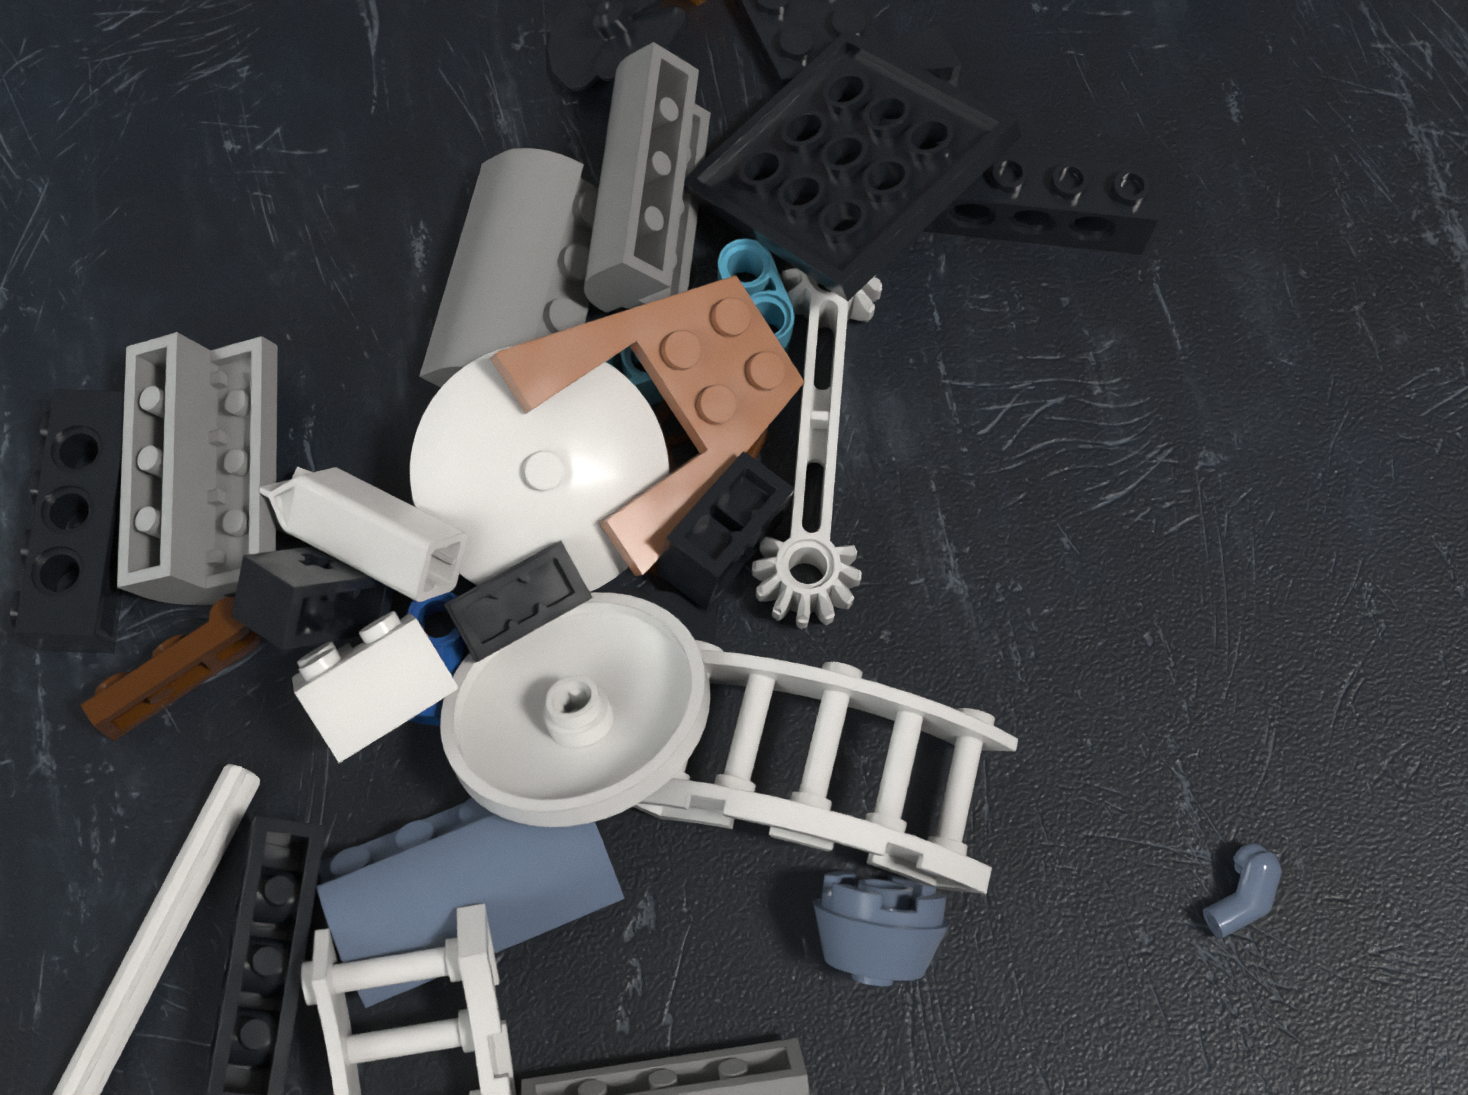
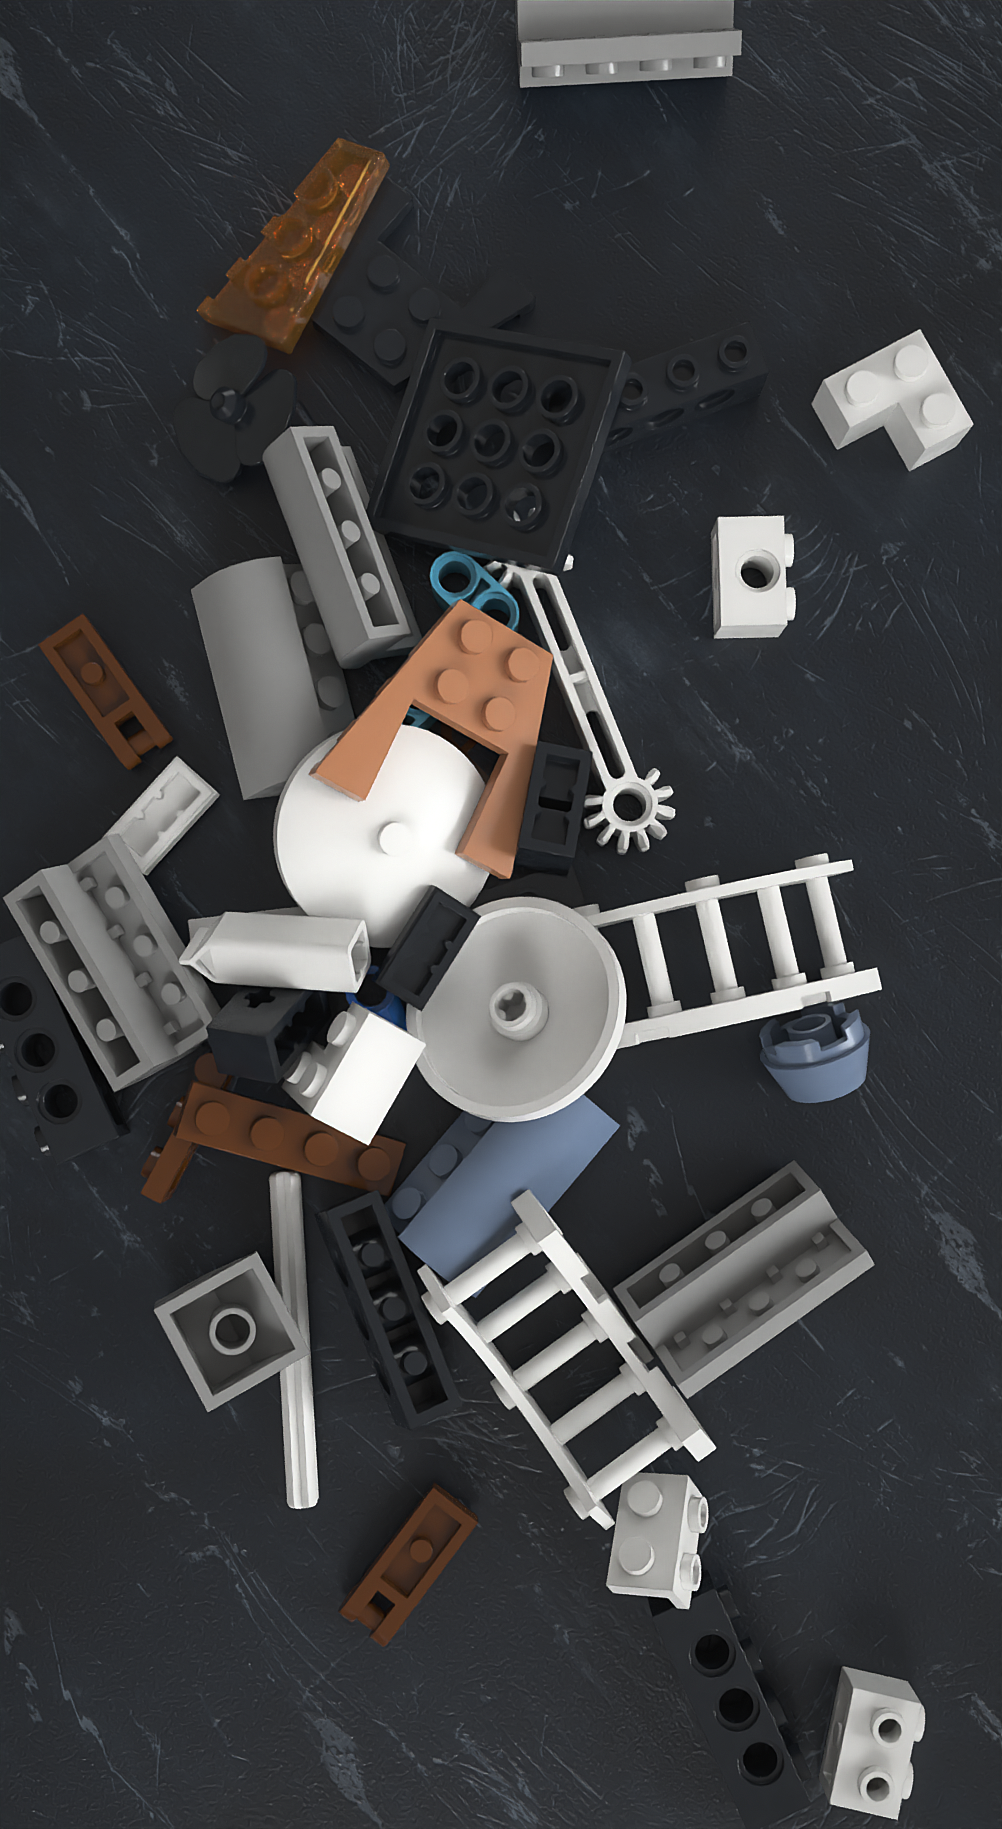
camera: 25 degrees left, 15 degrees up
(82, 899) = (230, 1330): none -> light grey slope
(267, 730) = (286, 1138): none -> reddish brown plate
(334, 356) = (163, 814): none -> white plate
(346, 217) = (104, 690): none -> reddish brown plate
(1054, 377) = (756, 544): none -> white brick
(1283, 302) = (899, 390): none -> white brick

